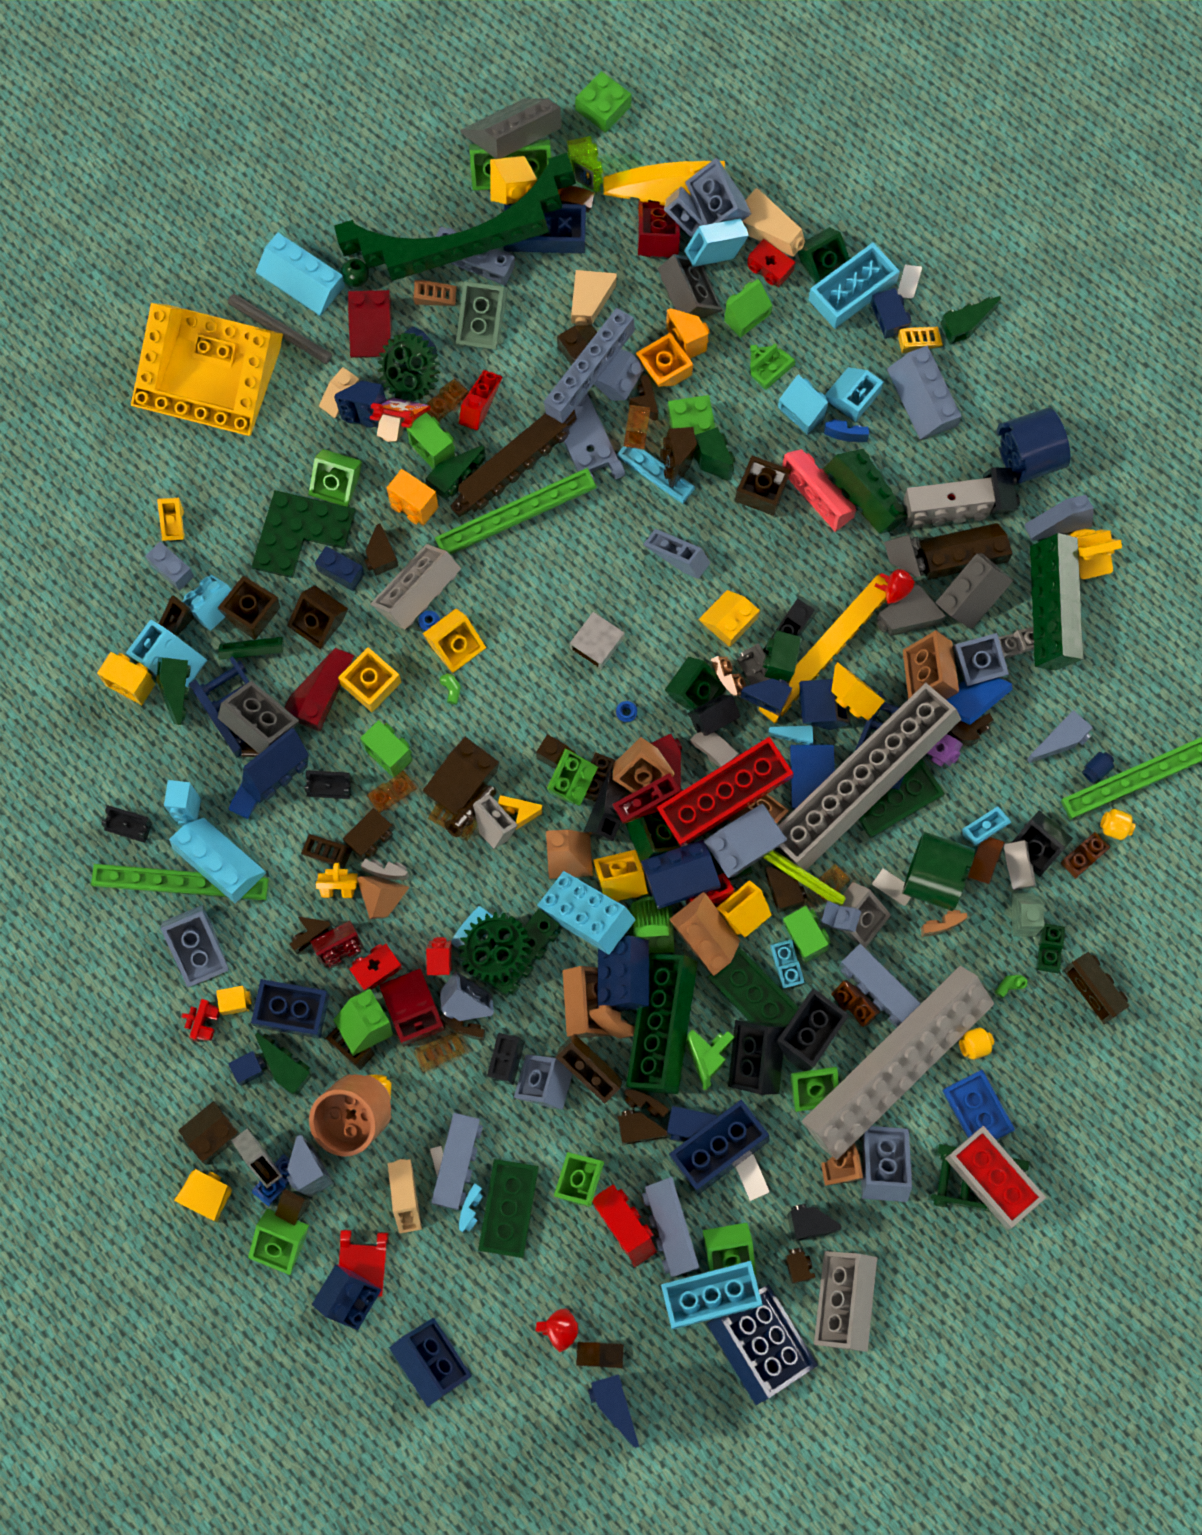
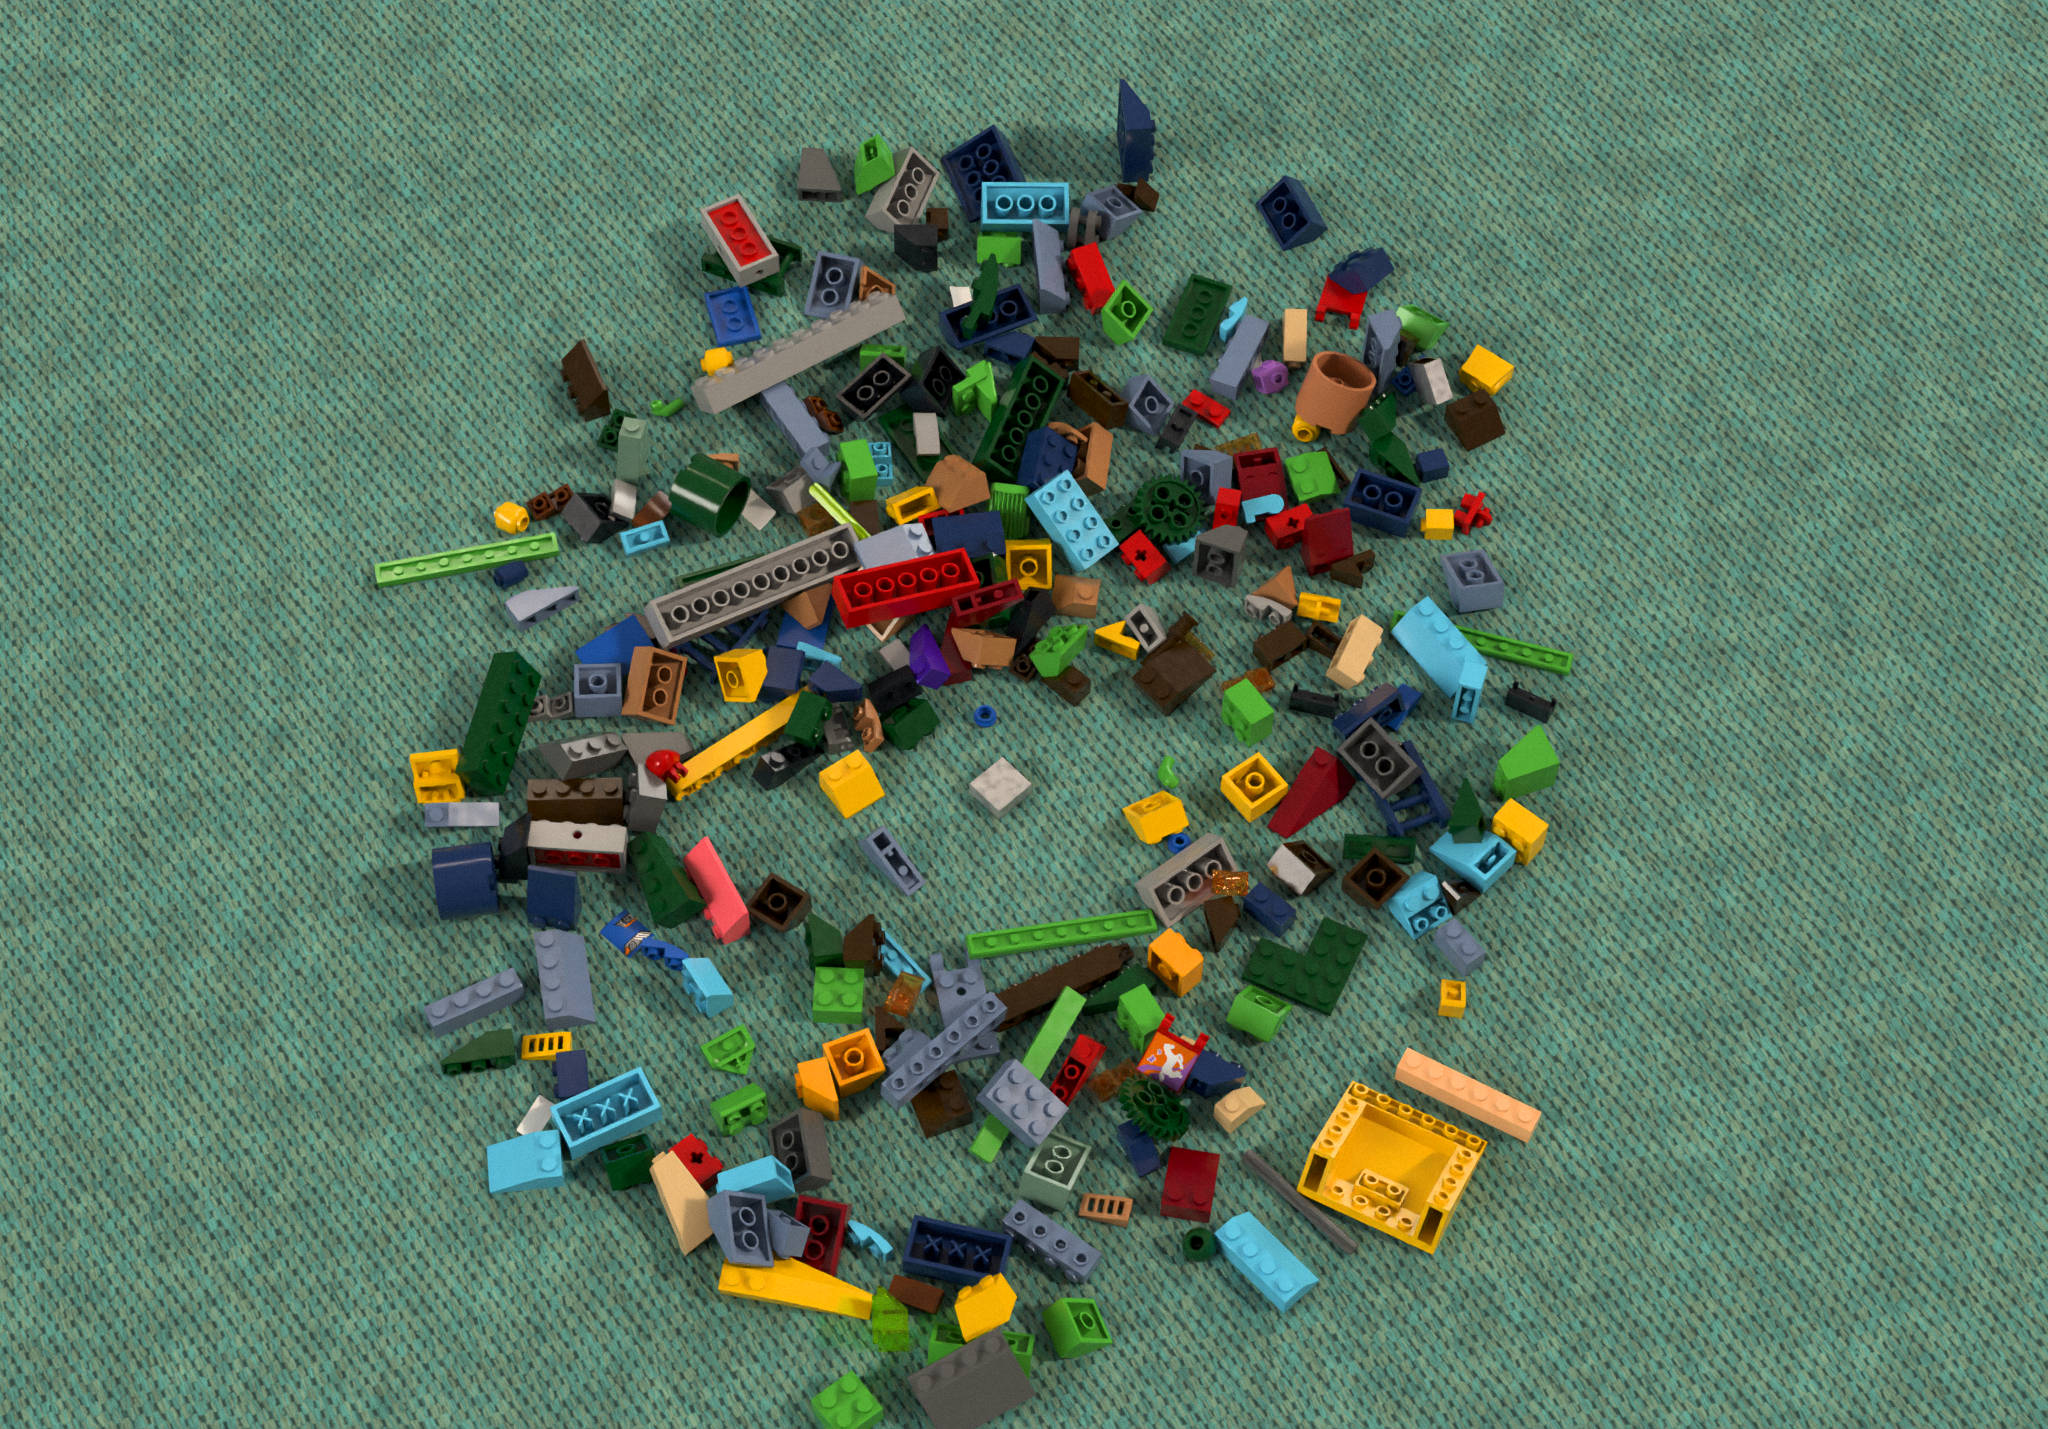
camera: 170 degrees left, 15 degrees down
(125, 744) = (1526, 767): none -> bright green slope
(150, 436) = (1467, 1095): none -> light nougat brick
(296, 838) = (1355, 652): none -> tan brick
(301, 1094) = (1379, 416): none -> dark green slope
(377, 580) = (1229, 882): none -> clear orange brick
(407, 976) = (1268, 505): none -> medium azure leg
(415, 255) = (1131, 1235): dark green arch -> none
(421, 1139) = (1270, 377): none -> medium lavender brick
(434, 904) = (1220, 555): none -> dark grey slope
(439, 195) = (1076, 1327): none -> bright green slope
(481, 1095) = (1207, 408): none -> red plate
(510, 899) = (1154, 564): none -> red brick
(517, 348) = (1022, 1103): none -> sand blue brick
(518, 382) = (1036, 1061): none -> bright green tile
(560, 1329) = (1167, 215): red piece -> none
(590, 295) = (920, 1166): tan slope -> none
(621, 232) = (865, 1236): none -> medium azure slope
(622, 1321) = (1114, 207): none -> sand blue slope
(642, 1286) = (1092, 223): none -> dark grey brick
(691, 743) = (926, 659): none -> dark purple slope
(728, 1164) = (983, 297): none -> dark green slope
(749, 992) = (926, 434): none -> light grey slope
(807, 780) = (809, 606): none -> medium nougat slope
(854, 392) = (644, 992): medium azure slope -> none
(883, 1320) = (873, 164): none -> bright green slope
(885, 450) = (626, 933): none -> blue sticker
(905, 239) = (526, 1162): none -> medium azure slope
(941, 1304) = (817, 178): none -> dark grey slope
(953, 451) = (553, 898): none -> dark blue slope
(990, 357) = (474, 1002): none -> sand blue brick

